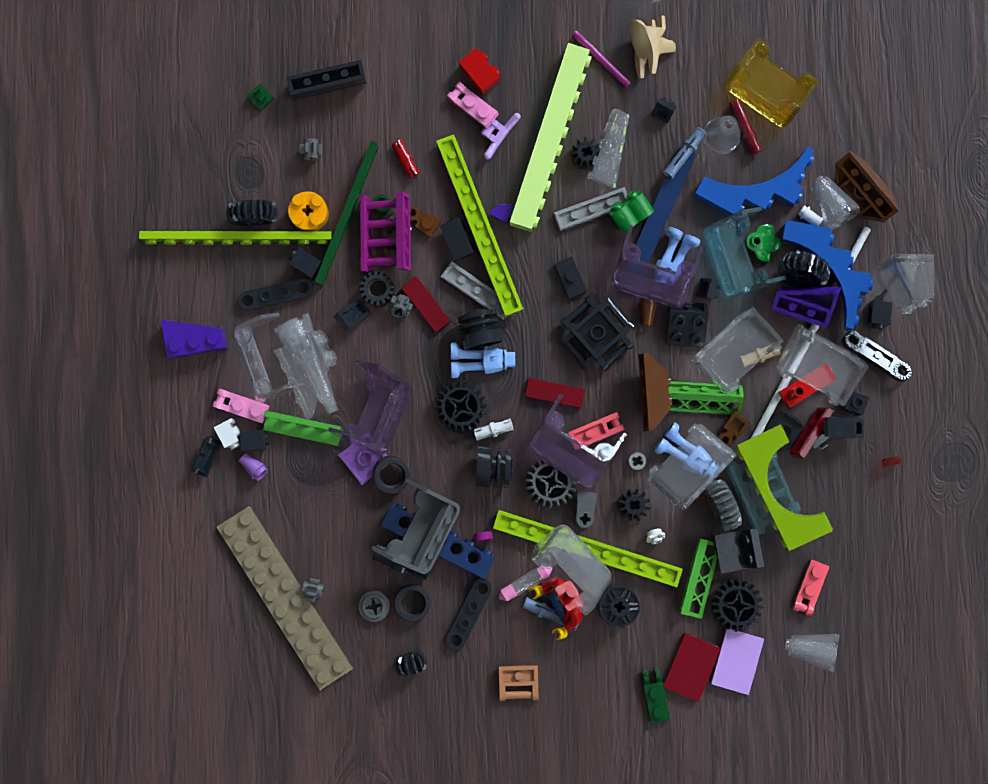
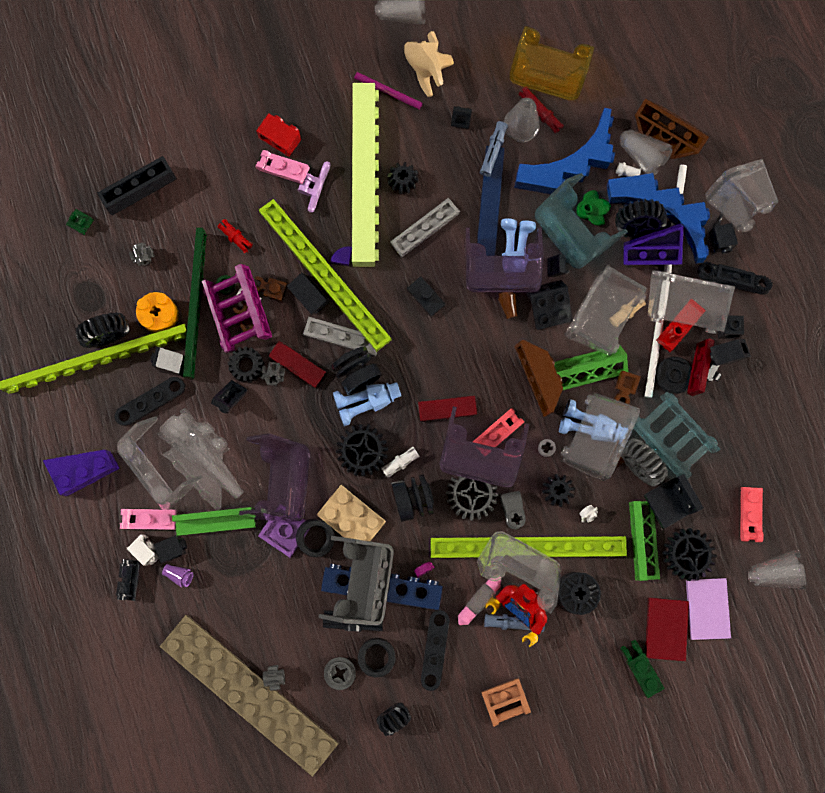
camera: 20 degrees left, 5 degrees down
(430, 465) = (350, 516): none -> tan plate
(597, 333) = (468, 339): black brick -> none
(610, 155) = (425, 171): clear wing -> none
(631, 210) = (462, 216): green brick -> none
(794, 527) = (719, 461): lime arch -> none
(891, 461) = (782, 371): clear red tile -> none

